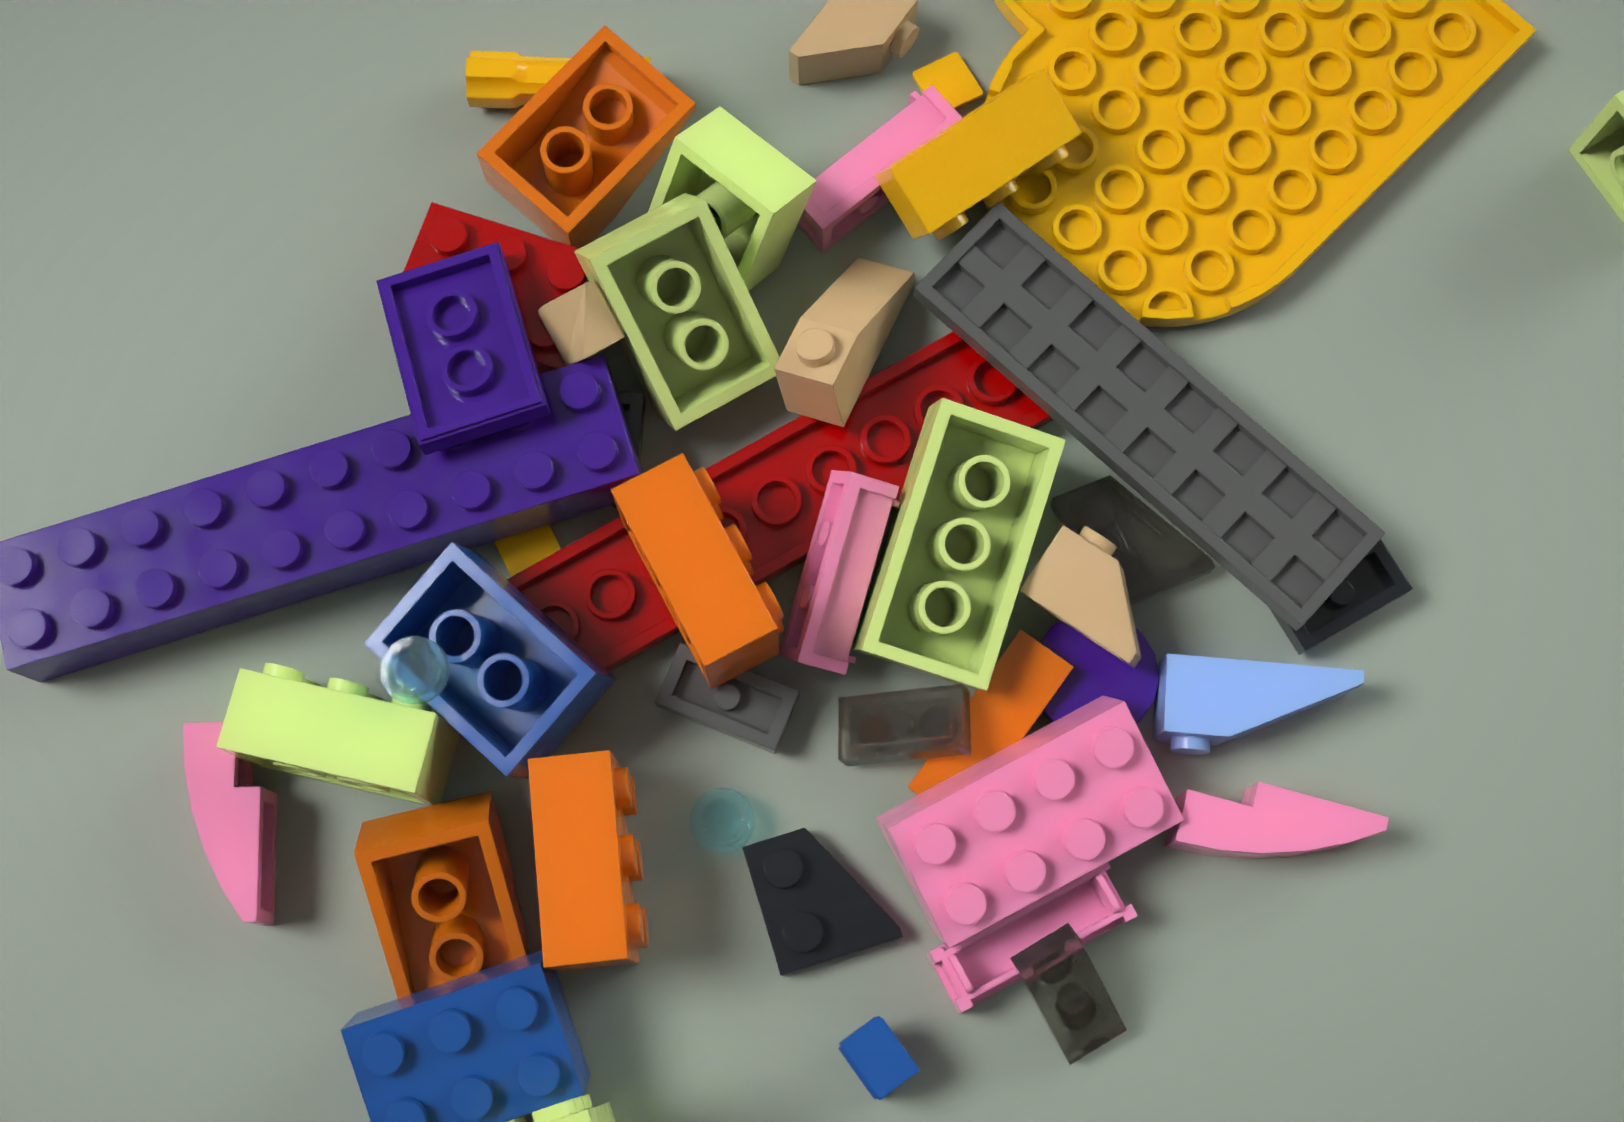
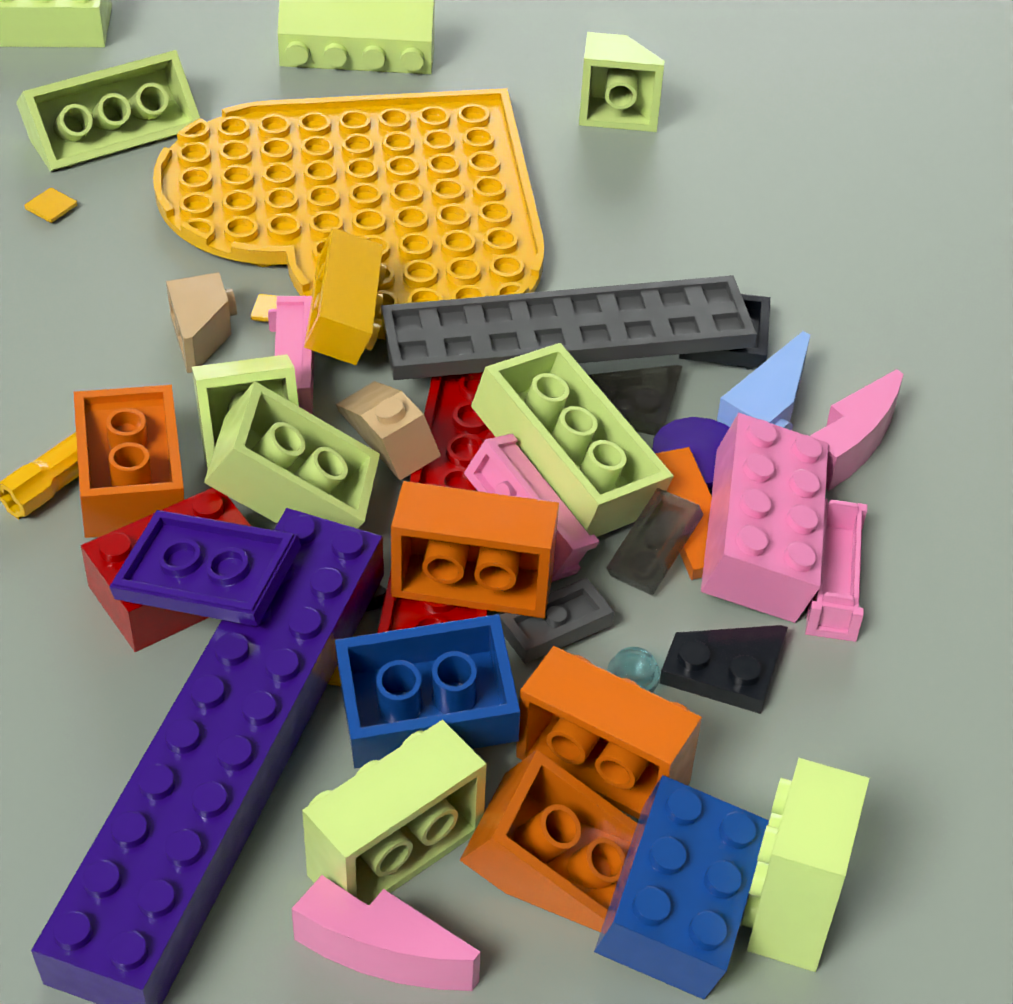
camera: 55 degrees left, 30 degrees down
(414, 670) = (403, 709): clear light blue plate -> none
(581, 322) = (255, 500): tan slope -> none
(878, 1058) = (859, 680): blue slope -> none
(1068, 993) = (891, 560): clear smoke plate -> none
(1086, 591) = (661, 405): tan slope -> none

